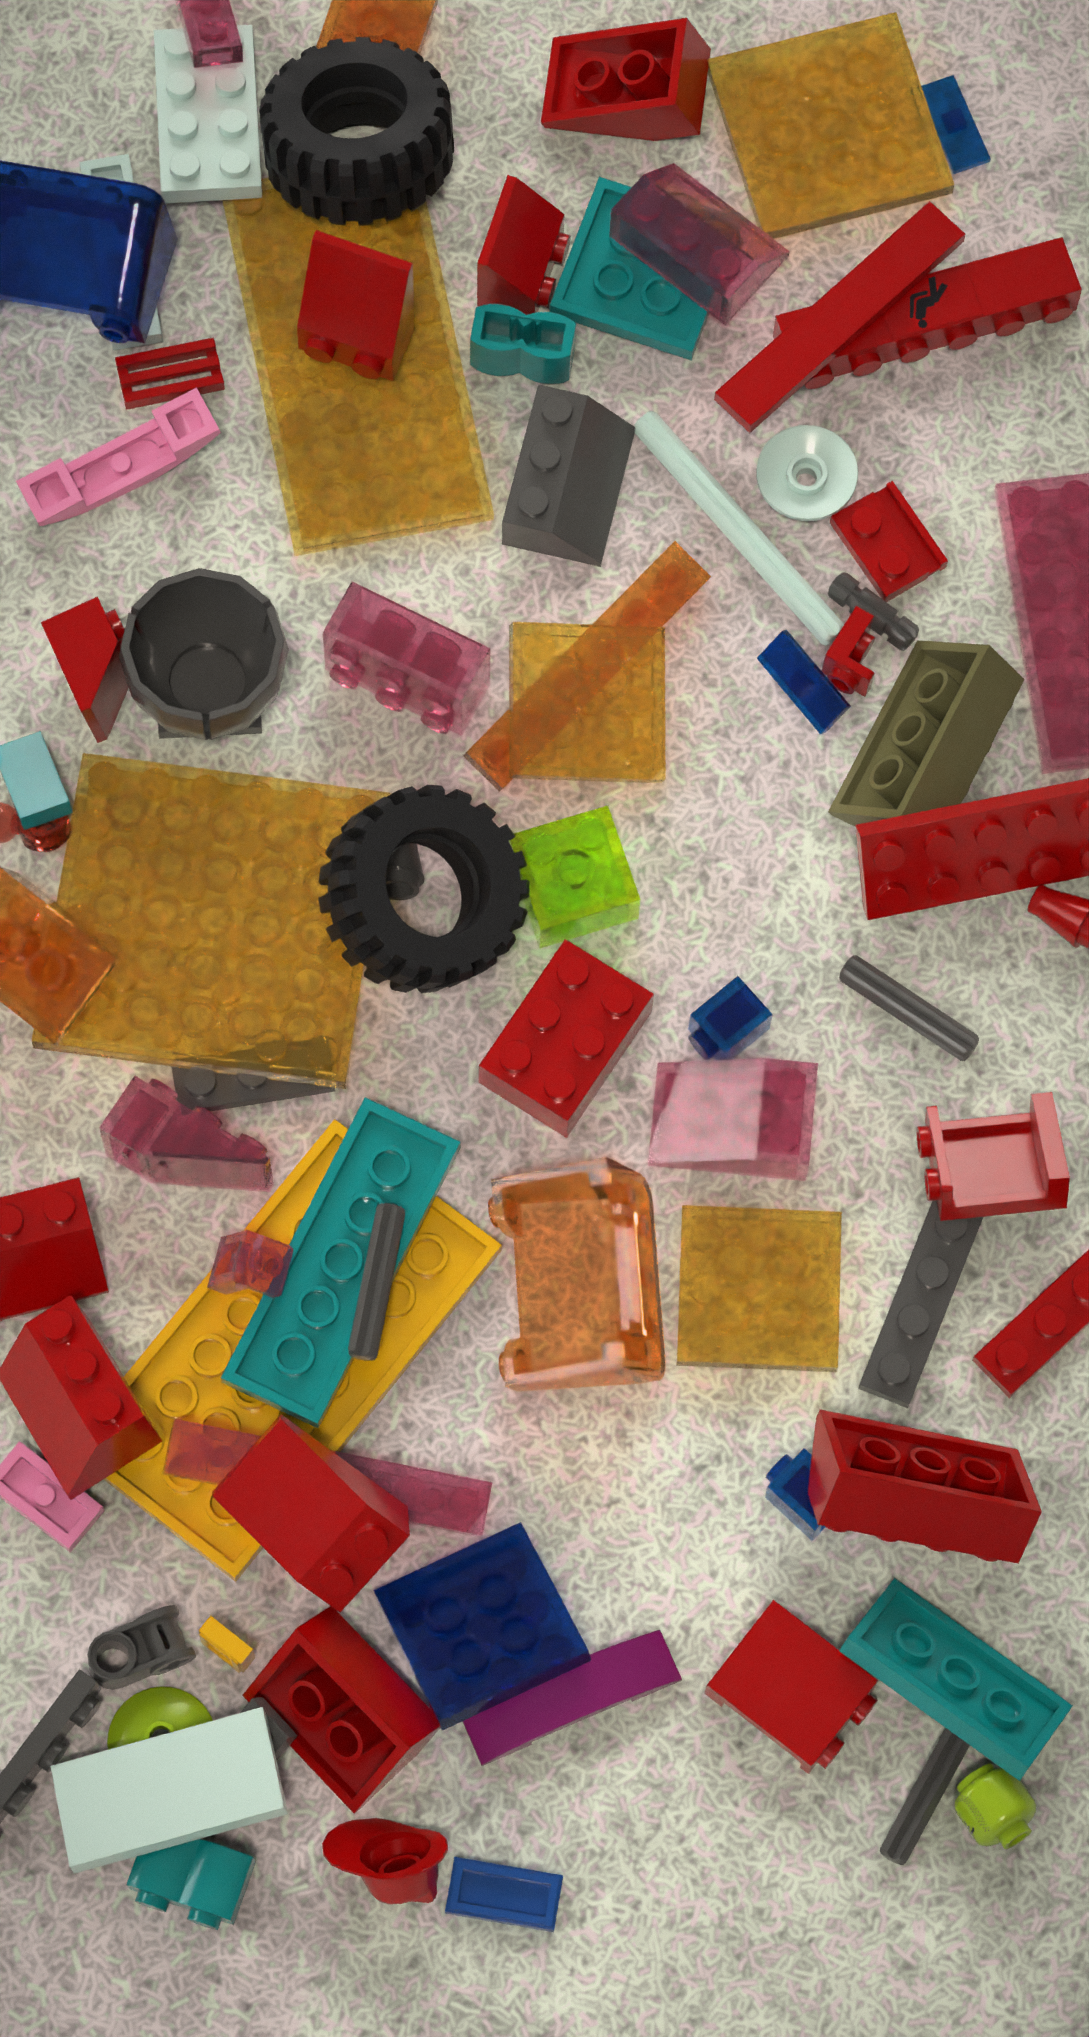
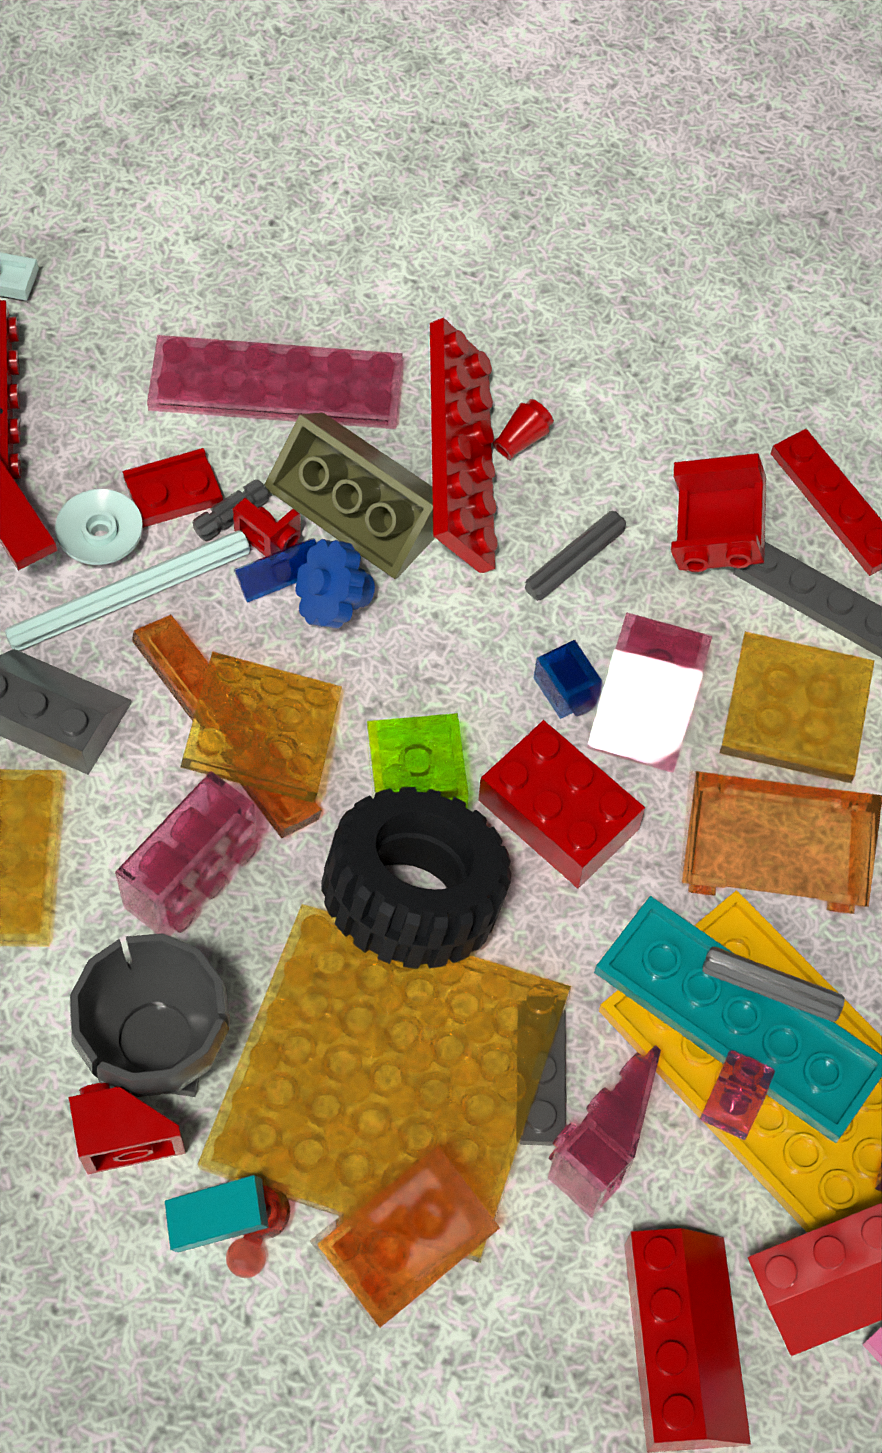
camera: 80 degrees left, 10 degrees down
(786, 741) = (332, 584): none -> blue plant

